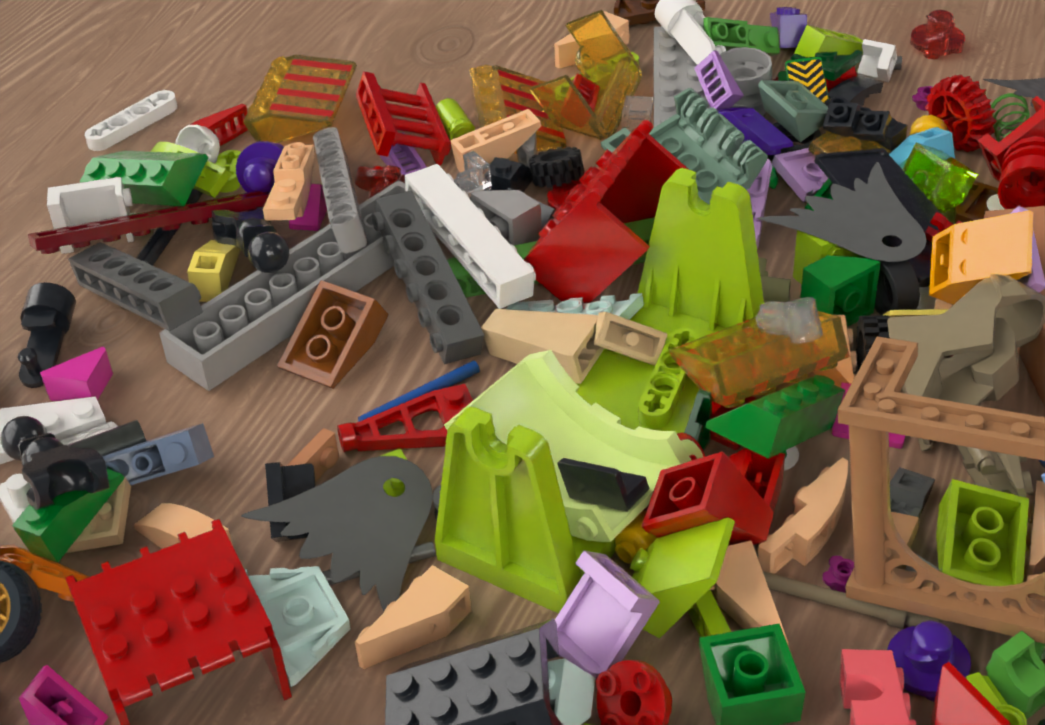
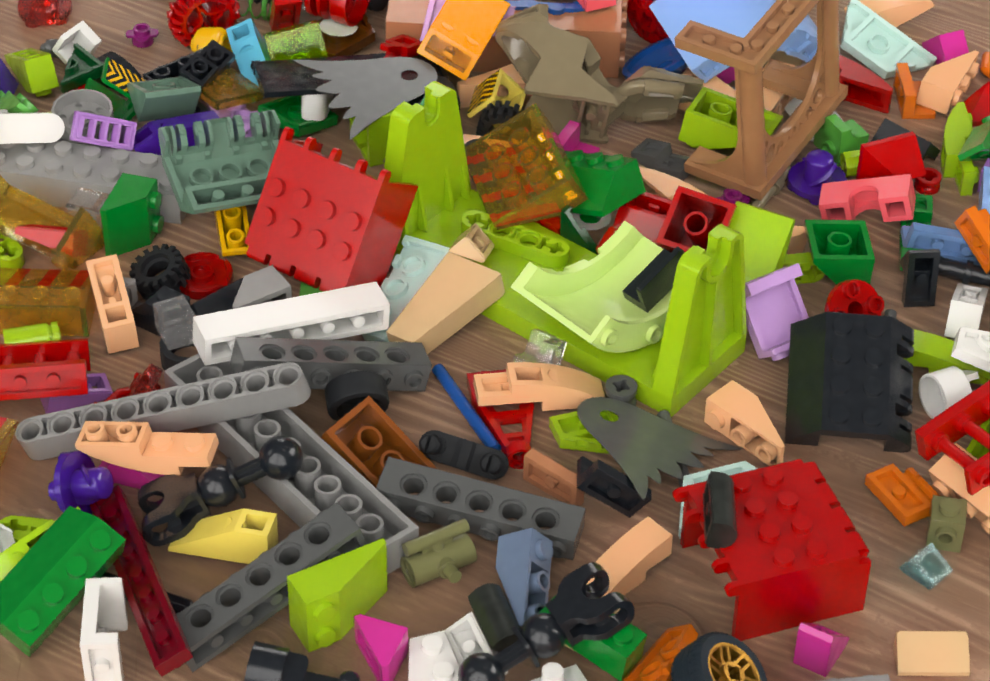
camera: 85 degrees left, 0 degrees up
(127, 331) = (334, 591): none -> lime slope
(162, 544) = (719, 511): none -> pearl dark grey brick
(193, 395) = (438, 554): none -> olive pin
(251, 416) = (469, 494): none -> dark grey brick
(353, 381) = (464, 454): none -> black piece
(394, 303) = (352, 388): none -> black tyre
(430, 413) = (530, 382): none -> light nougat slope
(614, 114) = (131, 214): none -> green slope
(793, 318) = (549, 116): clear piece -> none

